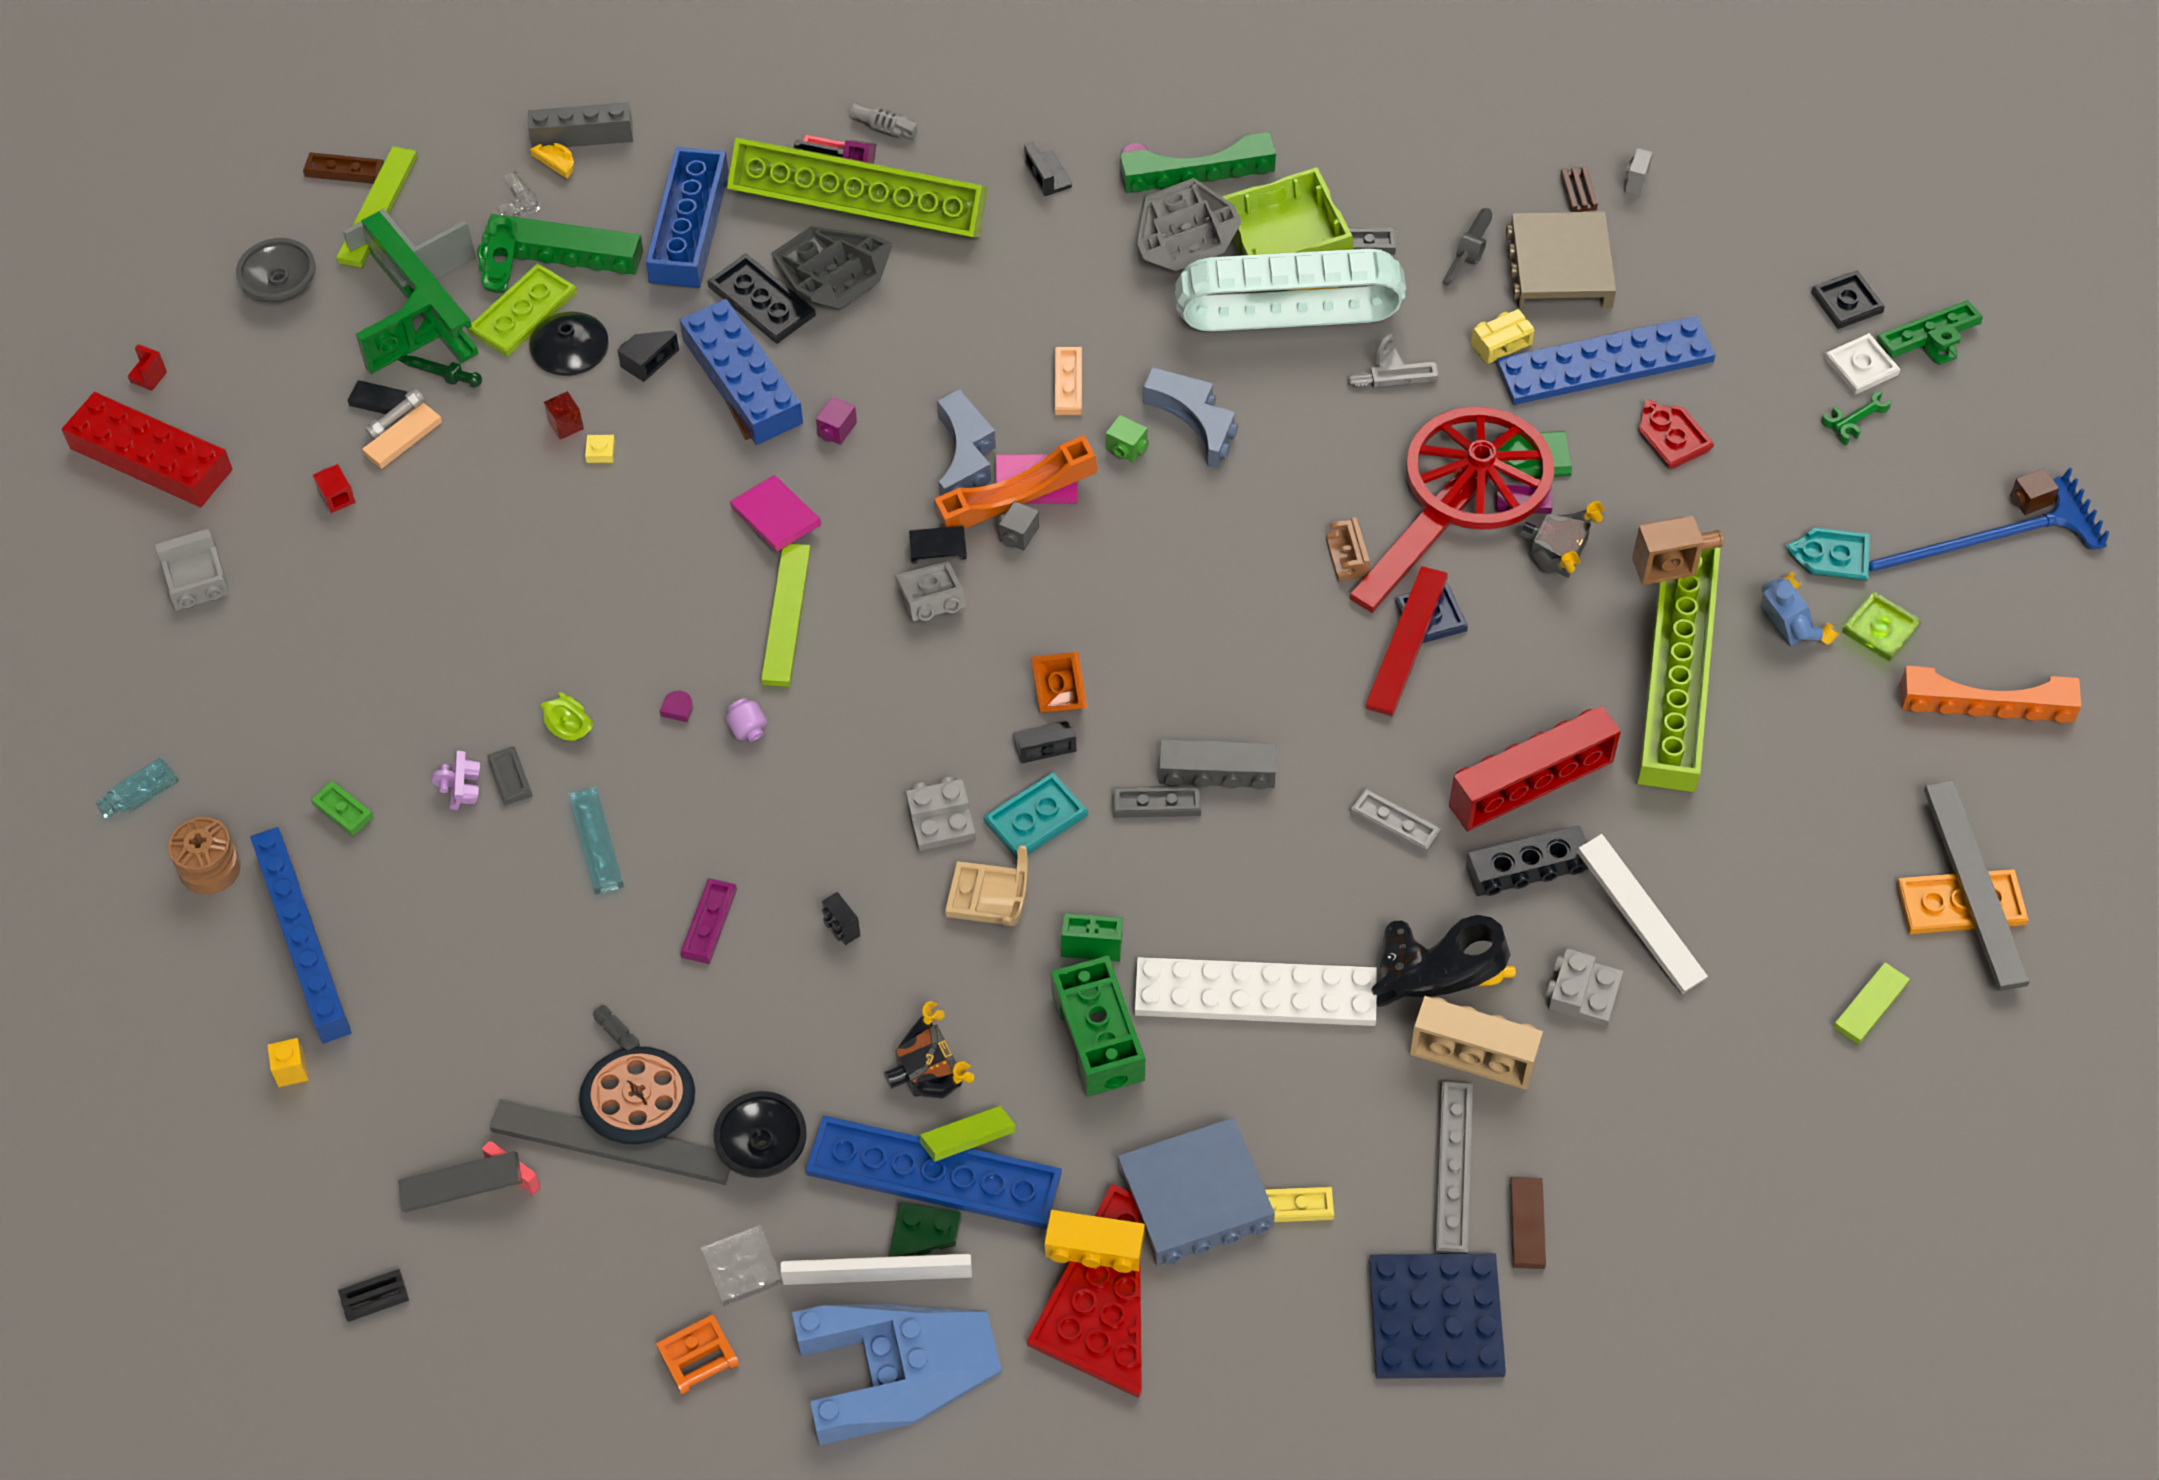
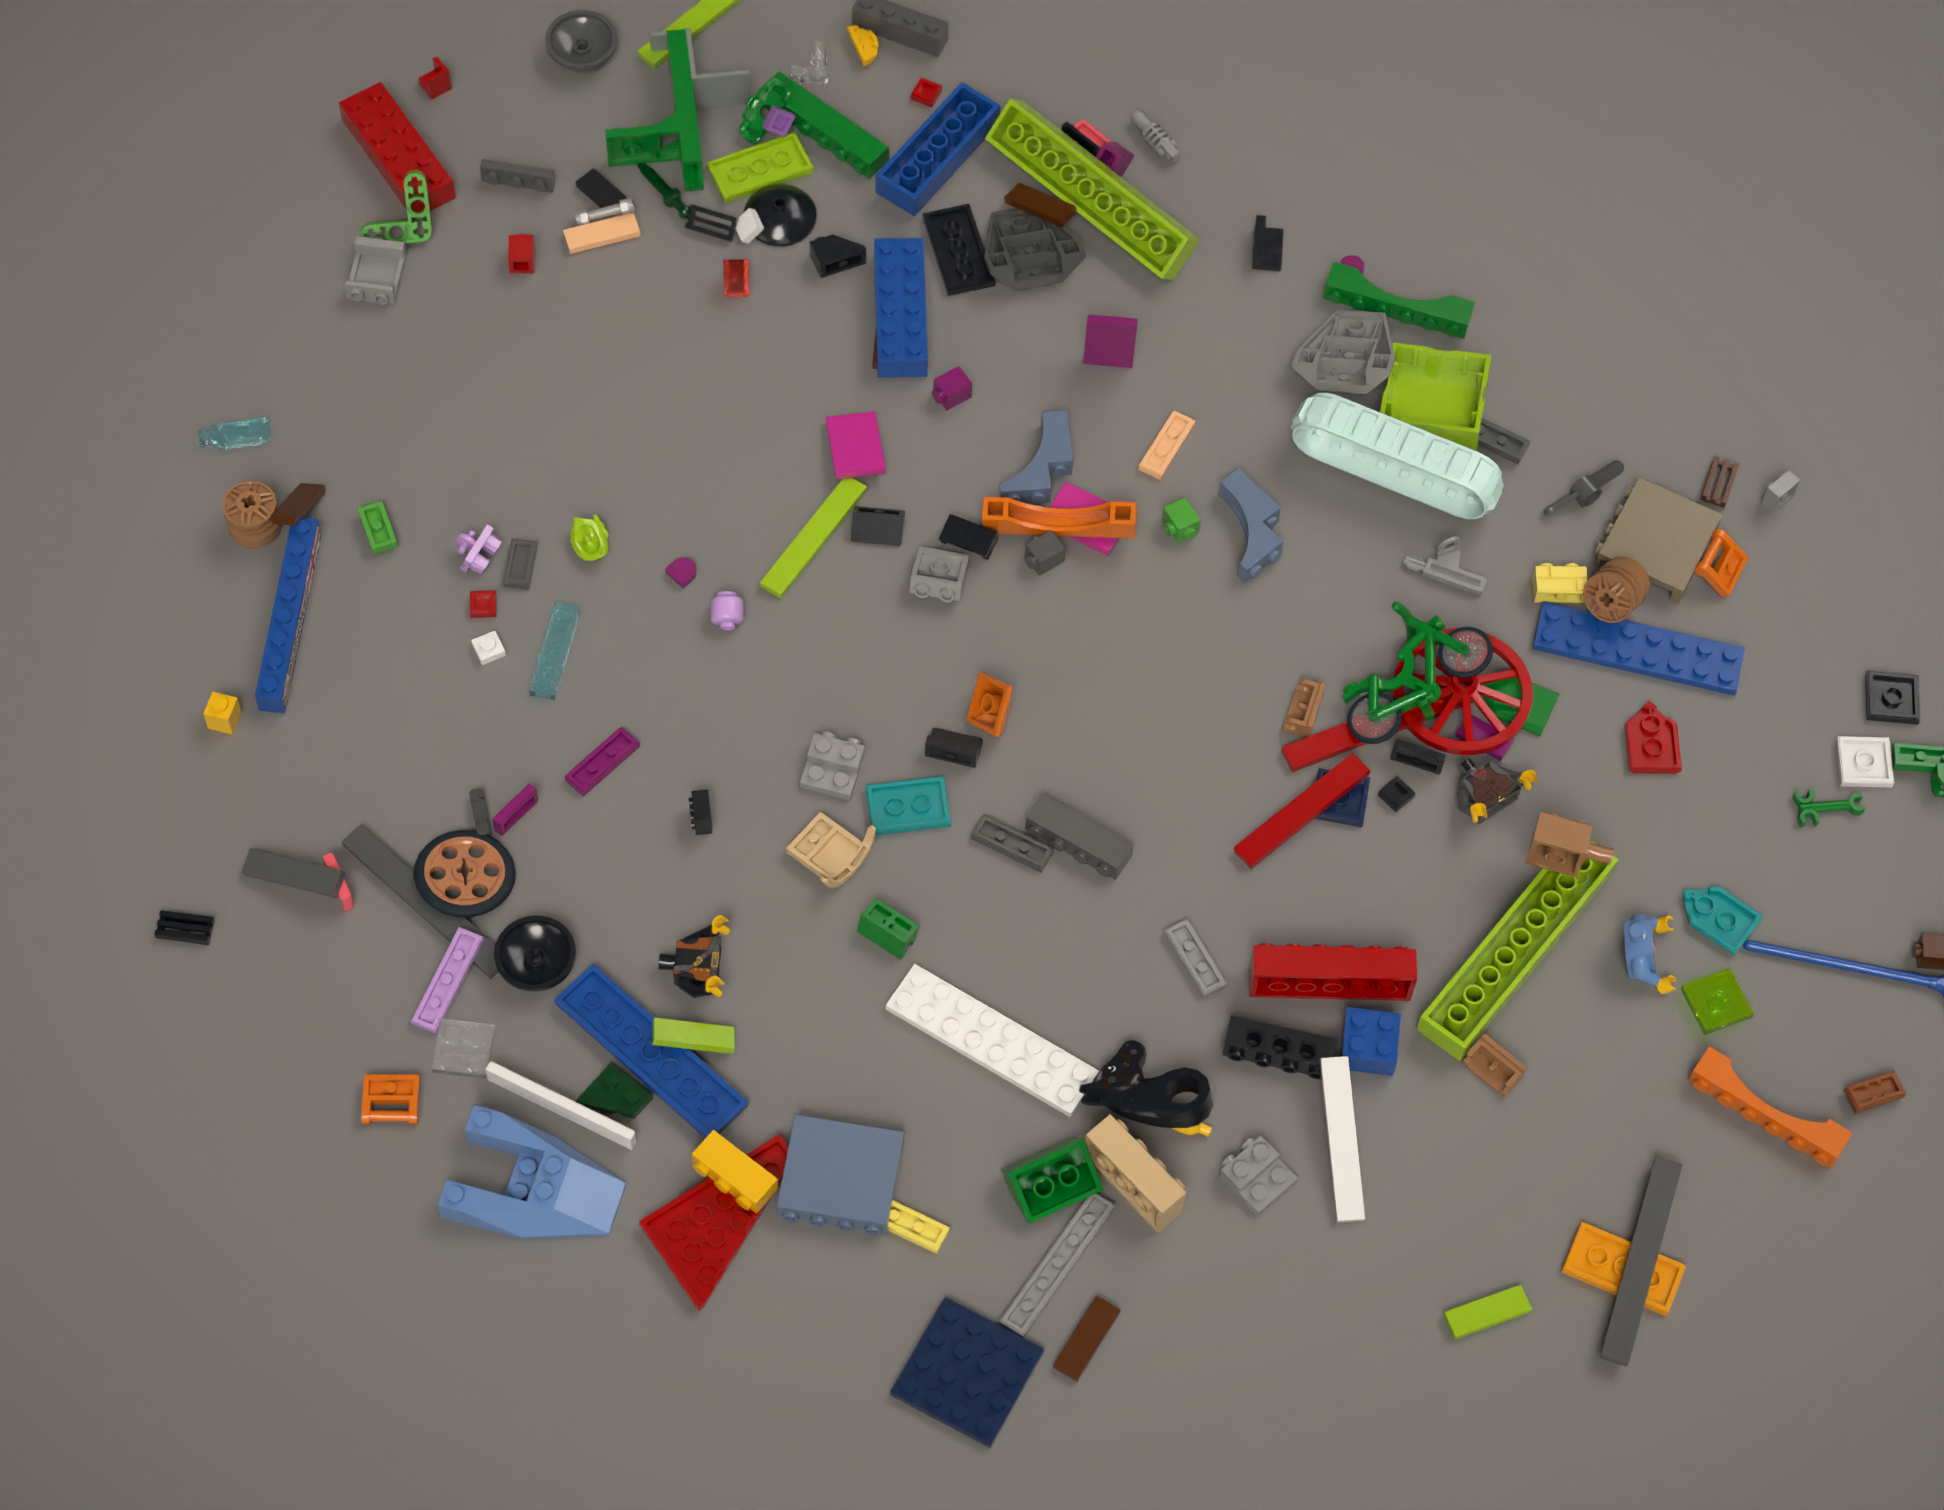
camera: 25 degrees right, 5 degrees up
(202, 511) = (408, 225): none -> bright green beam
(247, 822) = (298, 504): none -> reddish brown tile
(285, 419) = (517, 176): none -> dark grey plate
(495, 830) = (483, 604): none -> red tile
(507, 367) = (691, 218): none -> black tile
(518, 257) = (778, 121): none -> medium lavender plate
(526, 869) = (488, 647): none -> white plate
(545, 364) = (749, 225): none -> white tile
(600, 449) = (750, 320): light yellow plate -> none
(642, 175) = (926, 92): none -> red tile
(651, 1008) = (515, 810): none -> magenta tile
(684, 1207) = (447, 980): none -> lavender tile
(816, 223) = (1040, 204): none -> reddish brown tile
(843, 576) = (877, 525): none -> black panel
(963, 308) = (1110, 341): none -> magenta tile
(1106, 1050) = (837, 1026): green plate -> none
(1400, 1088) = (1052, 1179): none -> green slope
(1467, 428) = (1461, 654): none -> piece
(1478, 543) = (1417, 756): none -> black tile
(1479, 586) = (1396, 794): none -> black tile
(1562, 301) = (1616, 589): none -> medium nougat wheel
(1607, 809) = (1370, 1040): none -> blue brick
(1637, 255) = (1728, 566): none -> orange plate
(1729, 779) = (1494, 1065): none -> medium nougat hinge
(2067, 636) = (1874, 1092): none -> dark orange plate

